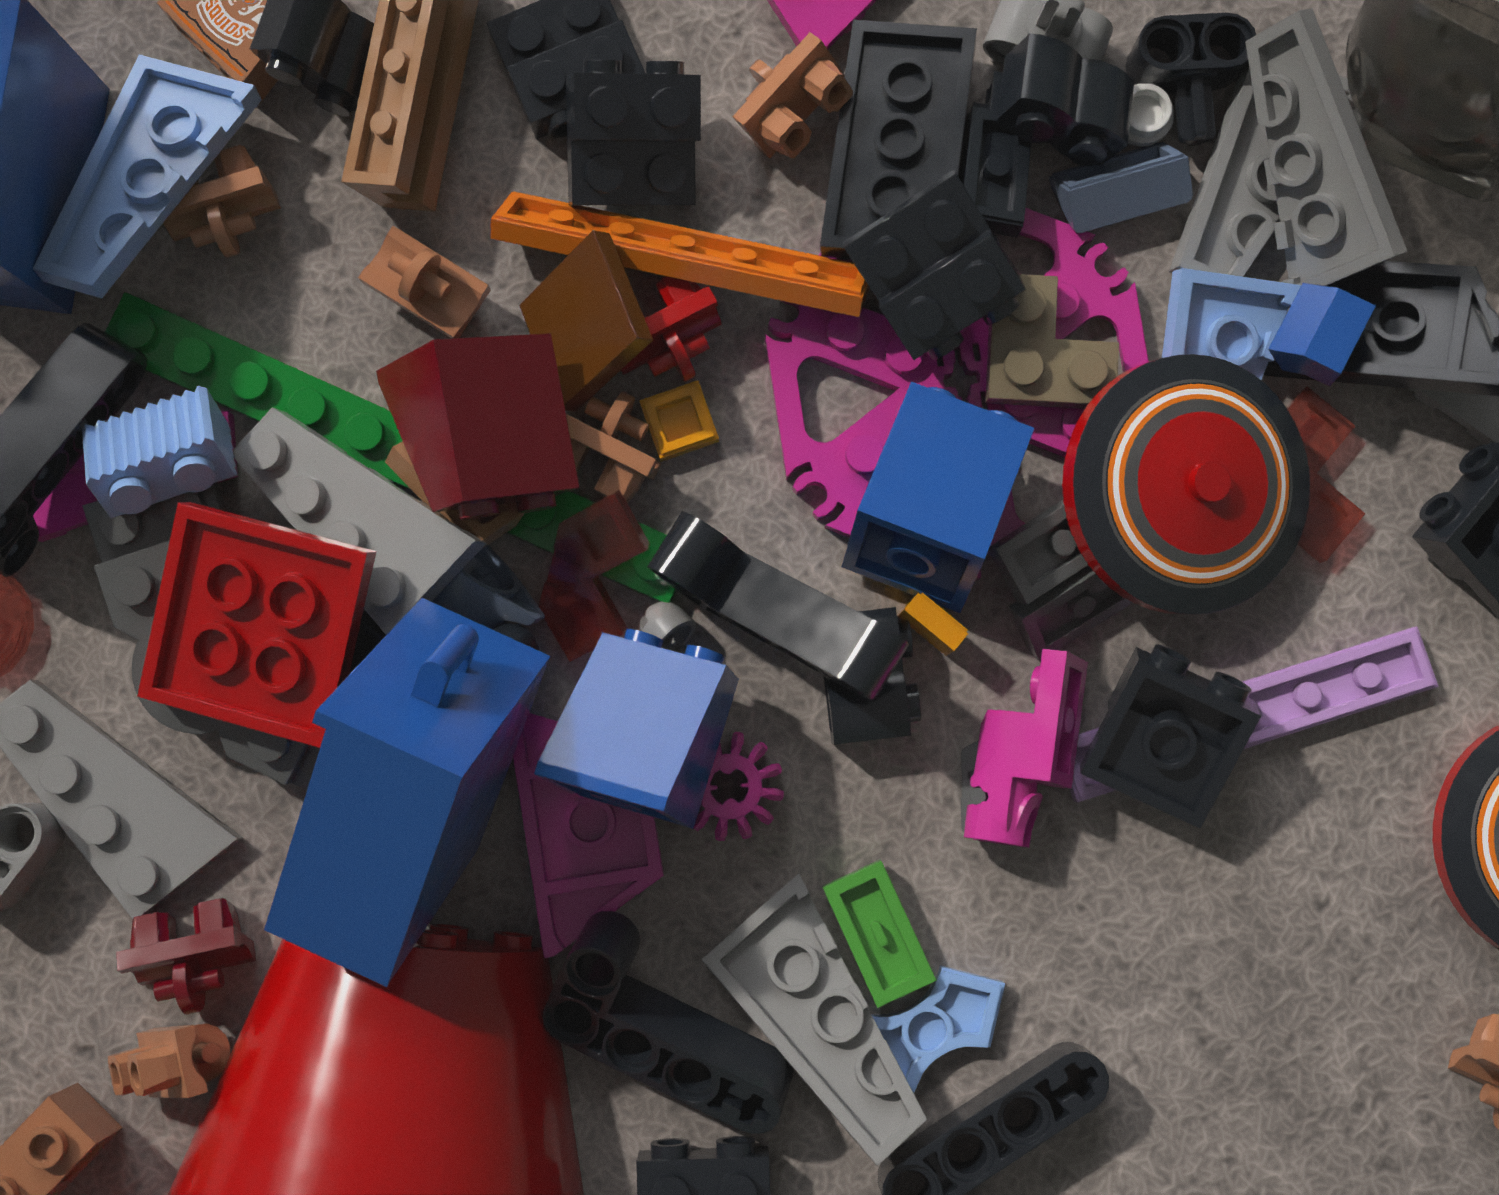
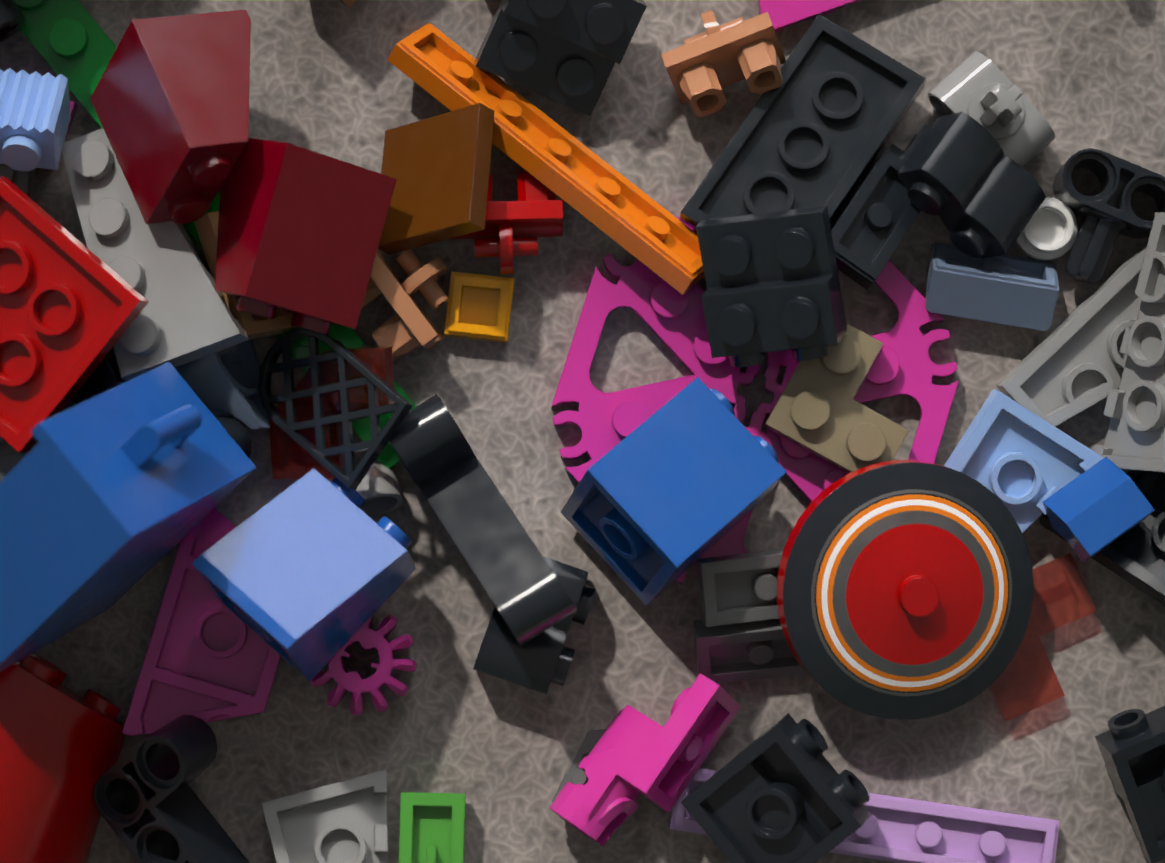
camera: 20 degrees right, 0 degrees up
(318, 363) = (177, 109): none -> dark red slope
(425, 283) = (308, 73): nougat hips -> none
(642, 622) = (379, 438): none -> black window
(933, 623) = (617, 603): light orange tile -> none

